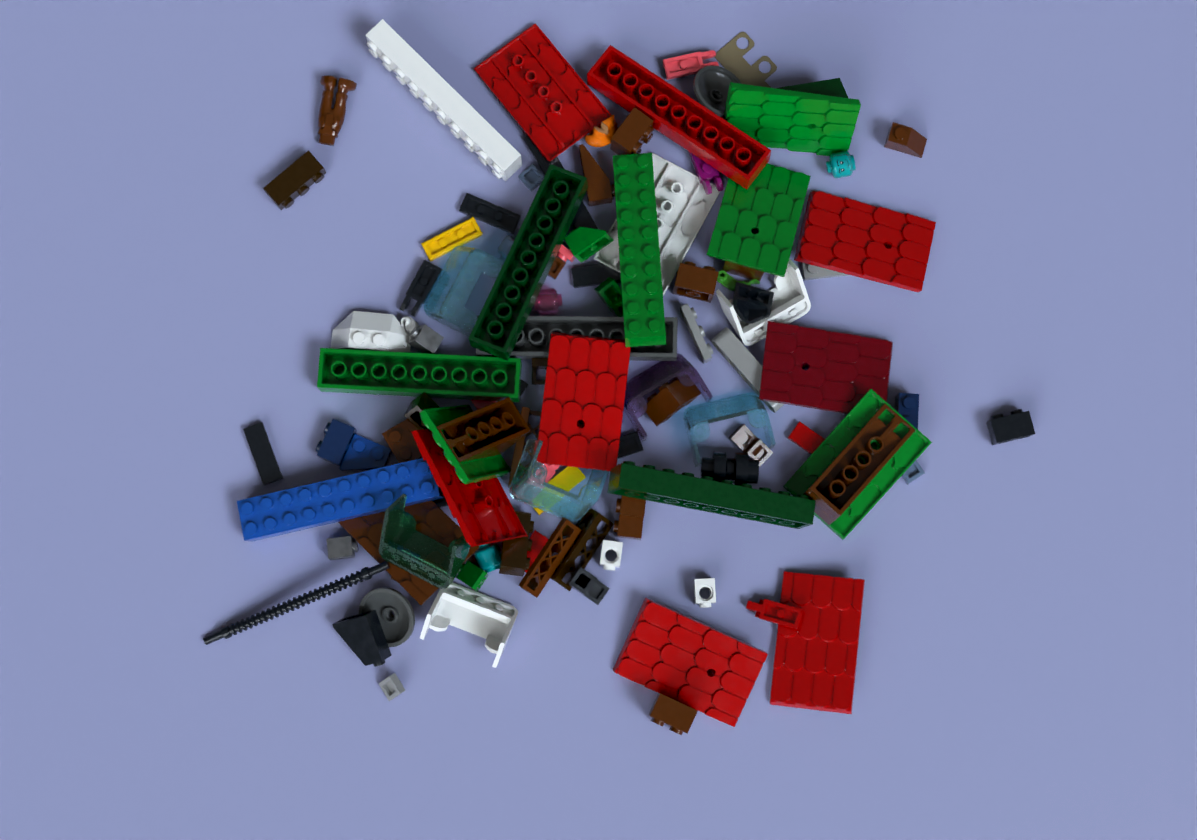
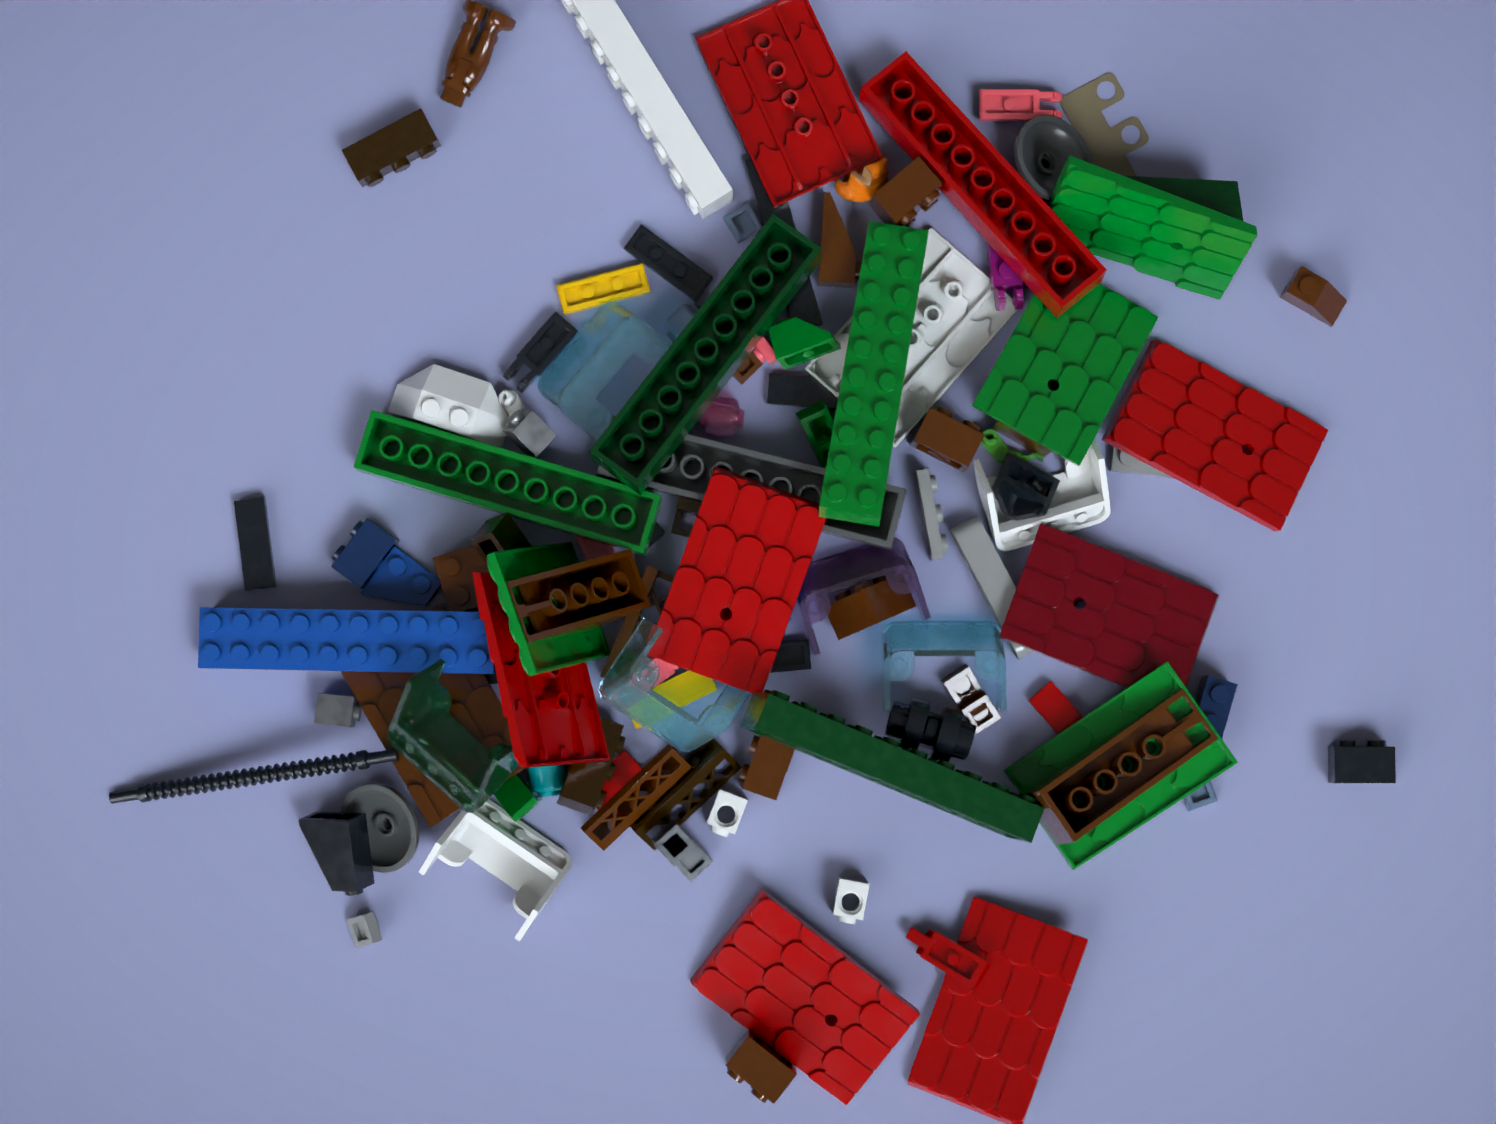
camera: 20 degrees right, 5 degrees up
(841, 164) = (1208, 311): teal head -> none

